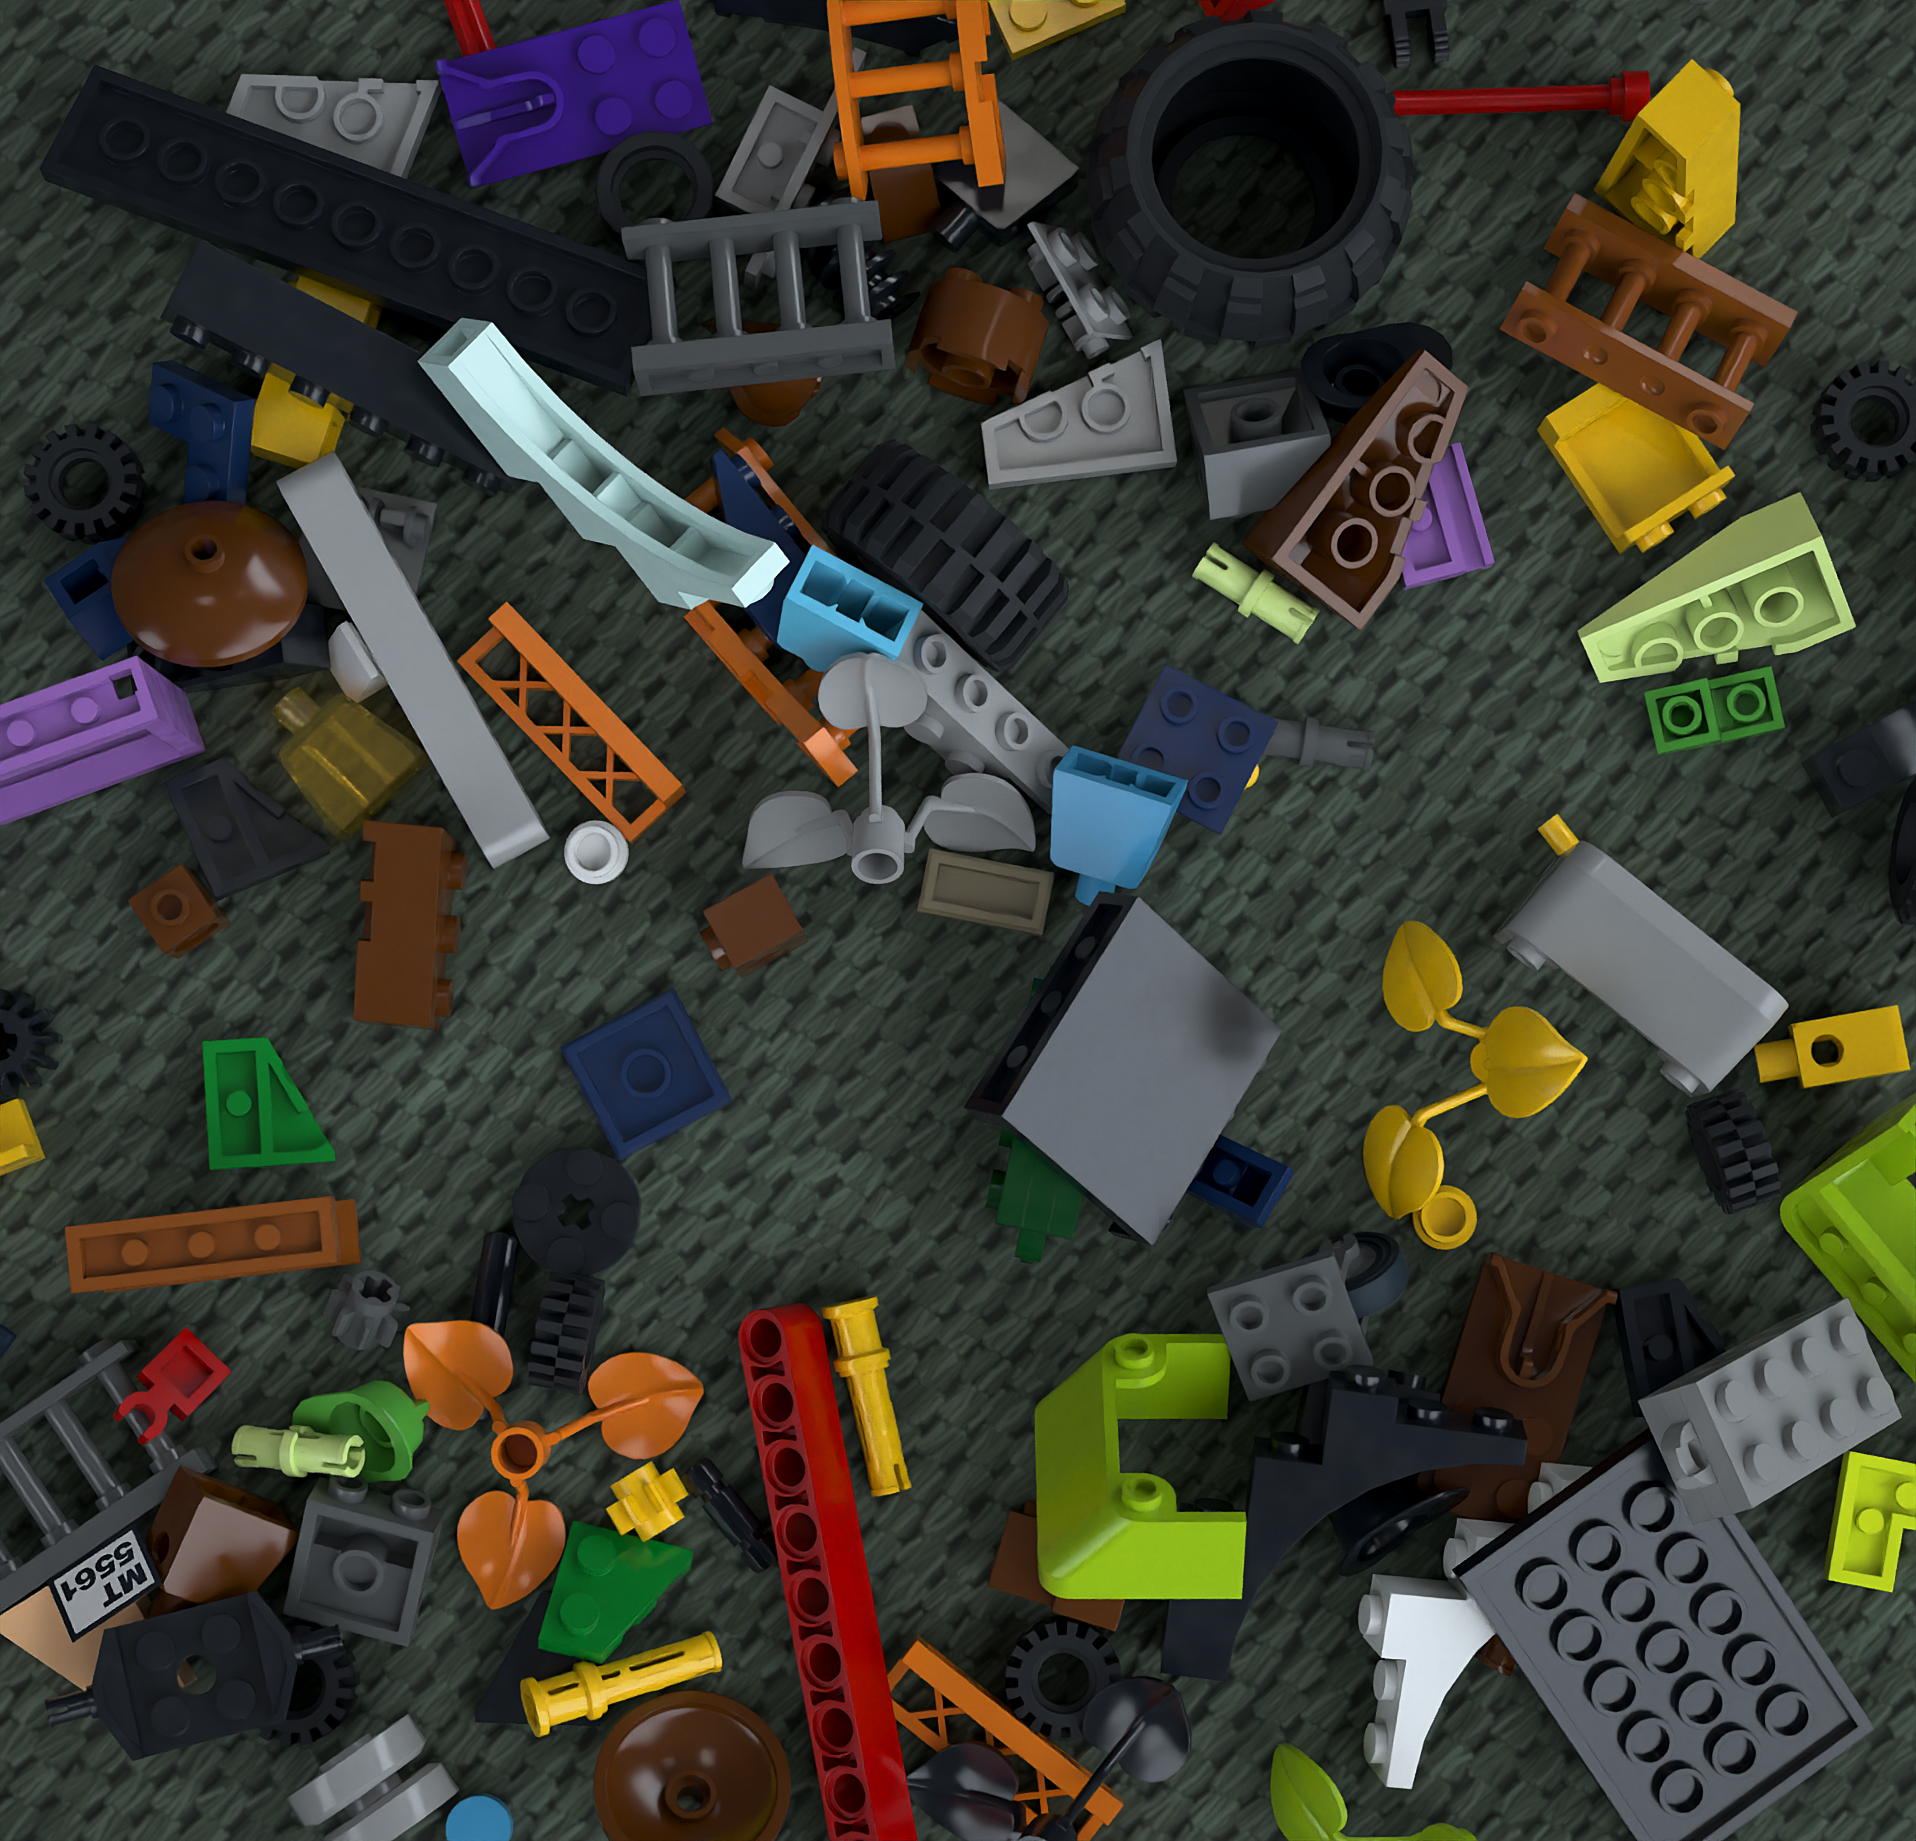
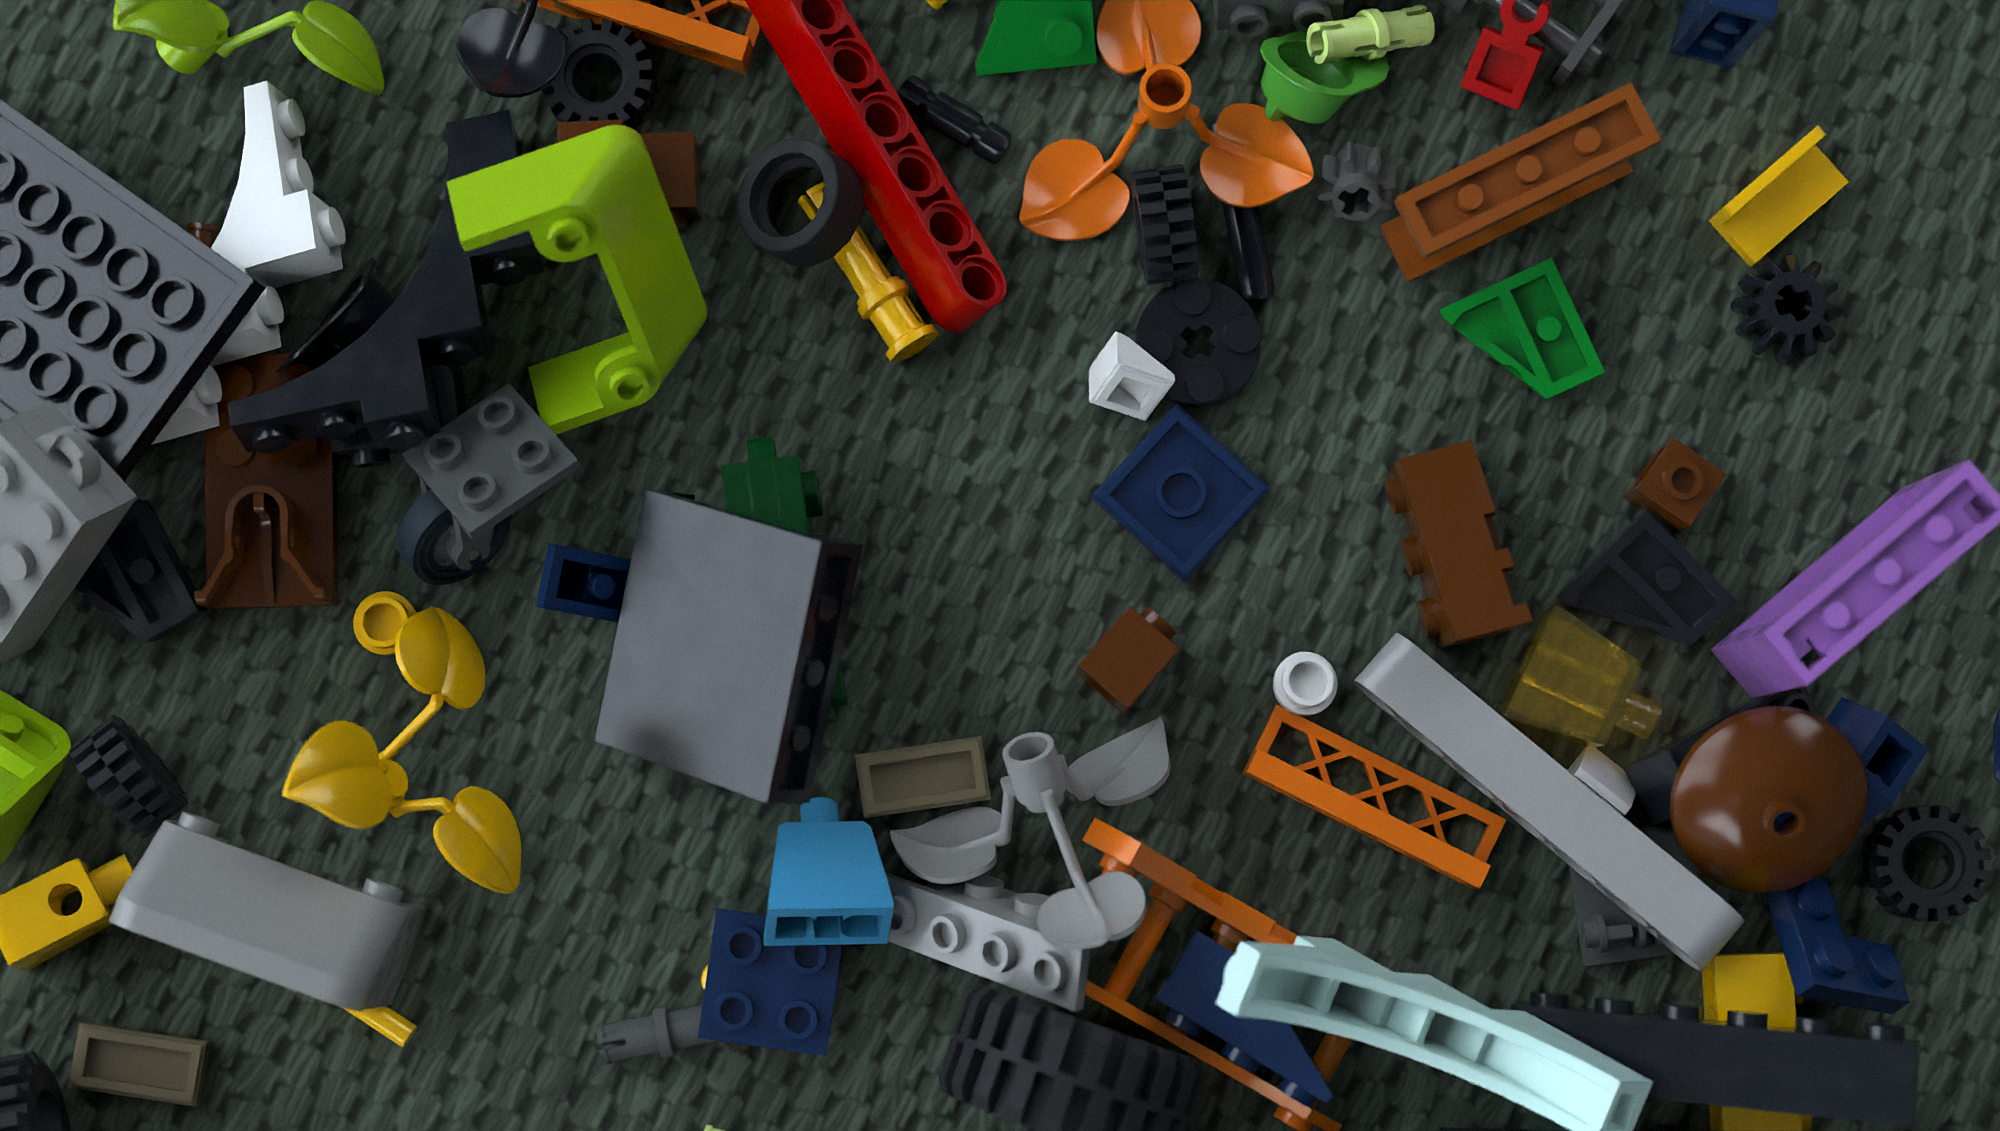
camera: 160 degrees right, 0 degrees up
(647, 1501) = (1034, 101): yellow gear -> none
(656, 1199) = (1128, 378): none -> white slope
(842, 612) = (1145, 978): medium azure torso -> none
(934, 1515) = (766, 184): none -> black tyre
(1807, 885) = (139, 1064): none -> dark tan tile

